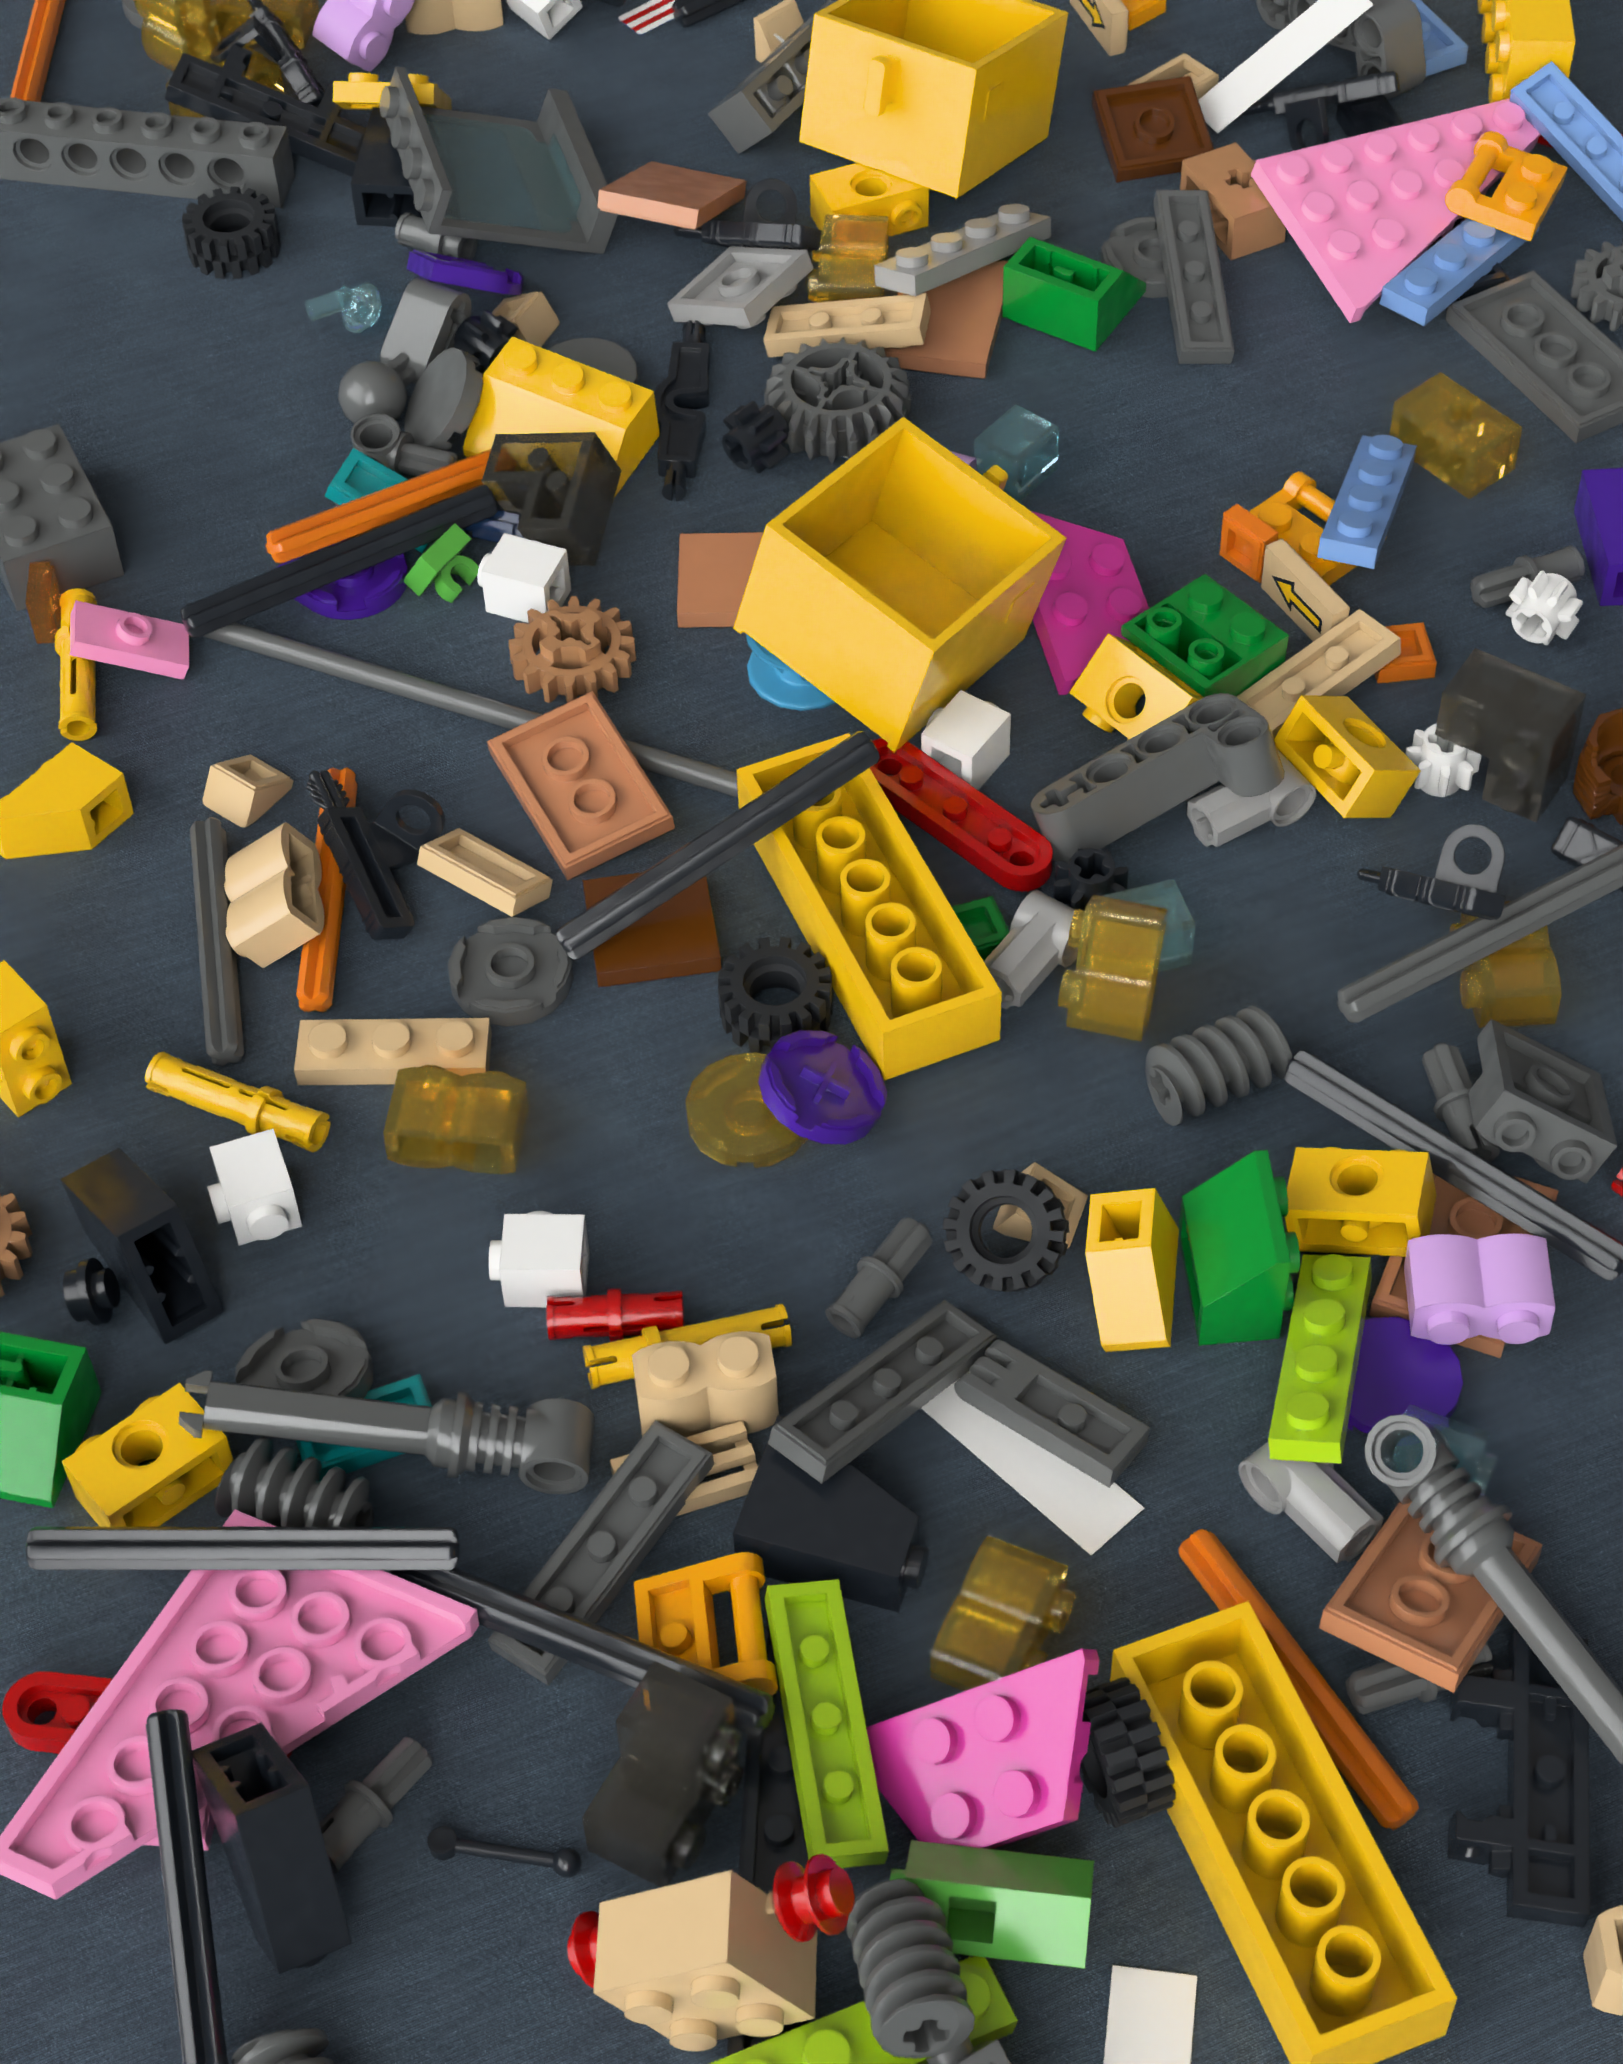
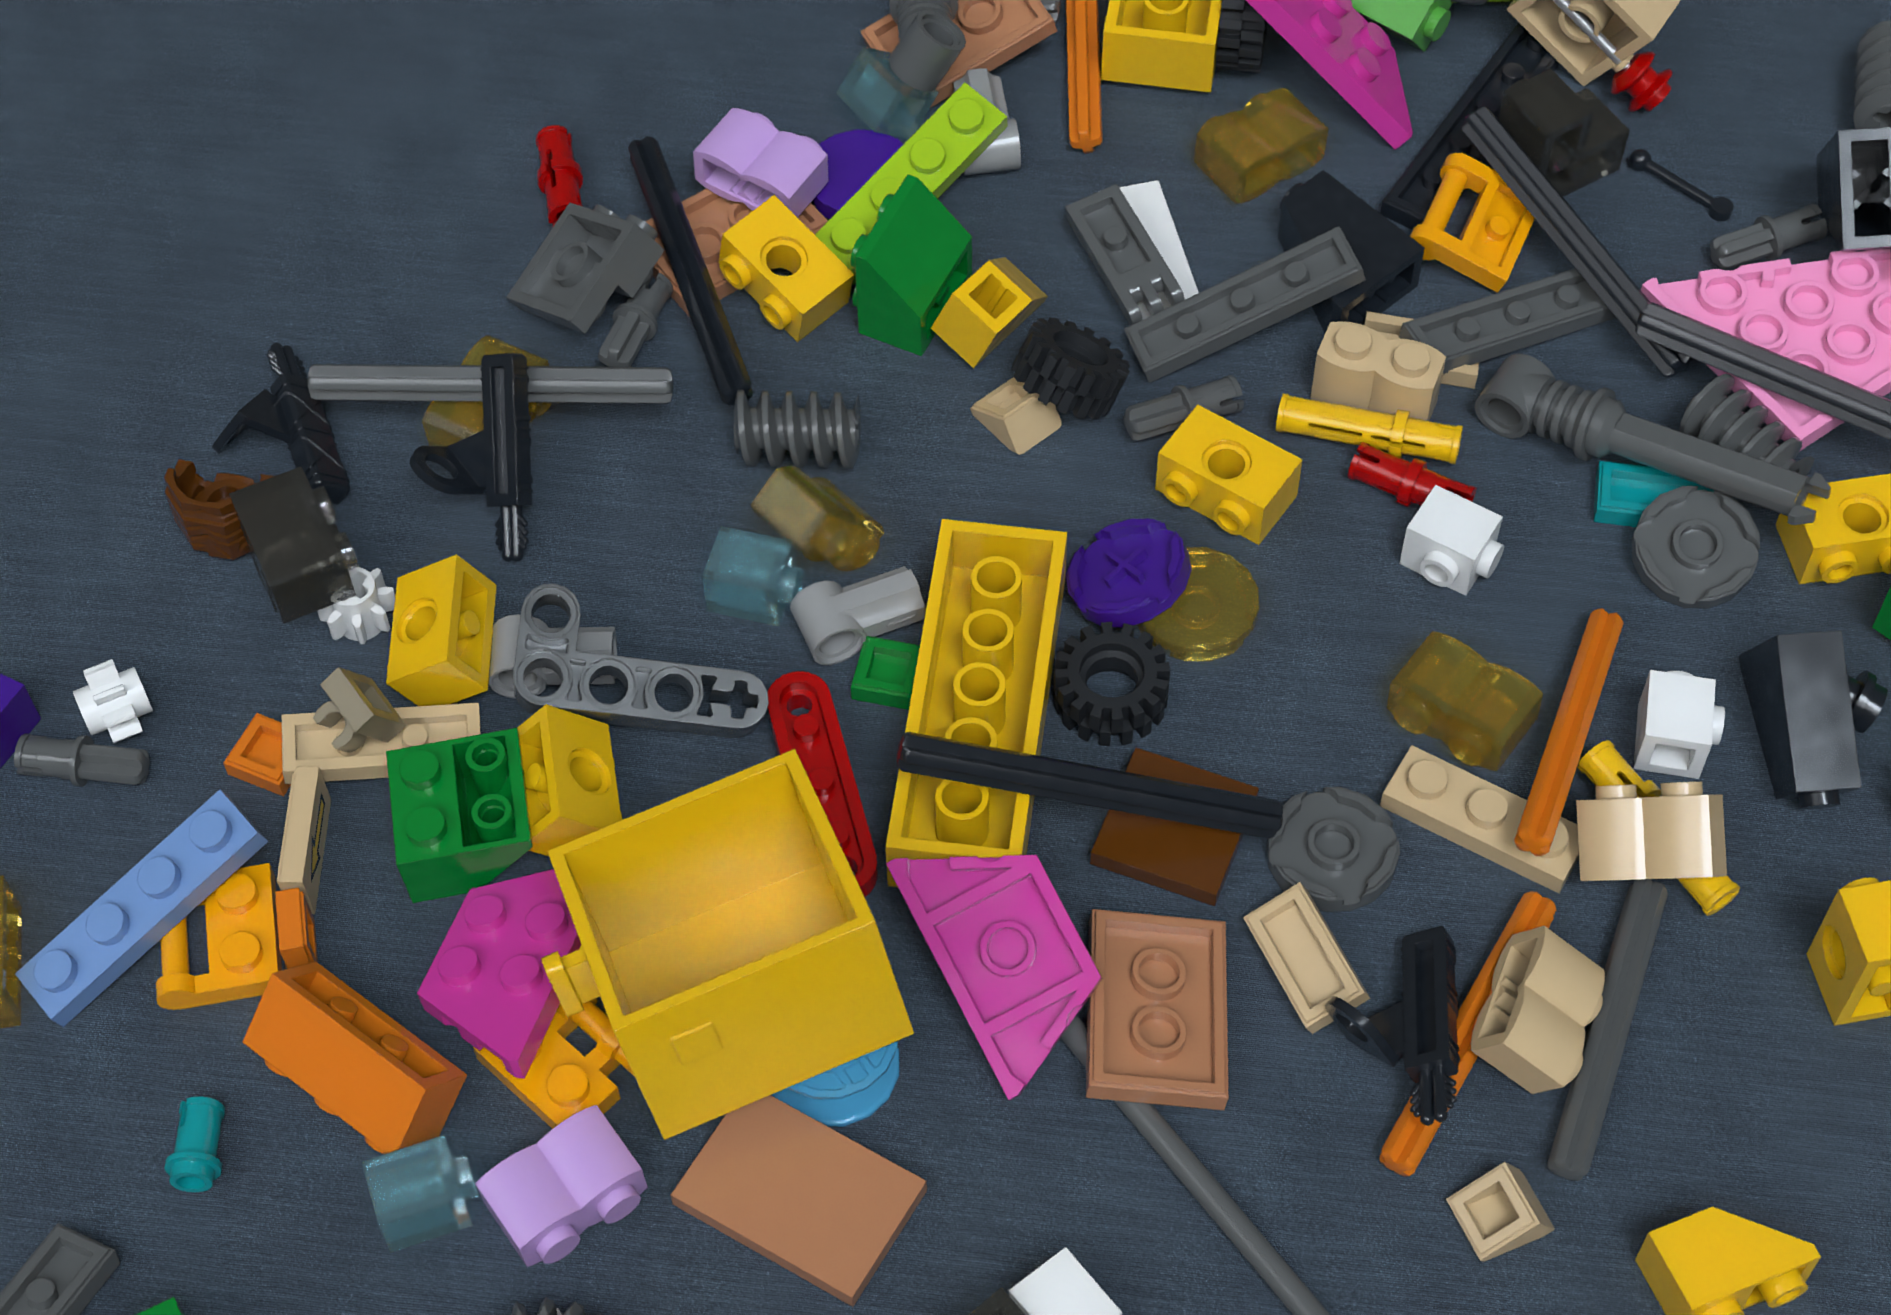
camera: 150 degrees left, 5 degrees up
(232, 1044) = (1651, 835): none -> tan brick
(348, 1134) = (1568, 733): none -> orange axle
(572, 650) = (1091, 1161): medium nougat gear -> none
(720, 730) = (1003, 953): none -> dark pink wing
(763, 1239) = (1227, 474): none -> yellow brick
(826, 1723) = (1425, 125): lime plate -> none
(1087, 874) = (763, 640): black gear -> none
(1126, 484) = (353, 1058): none -> orange brick
(1181, 412) = (194, 1159): none -> teal pin
(1336, 649) = (363, 708): none -> dark tan tile

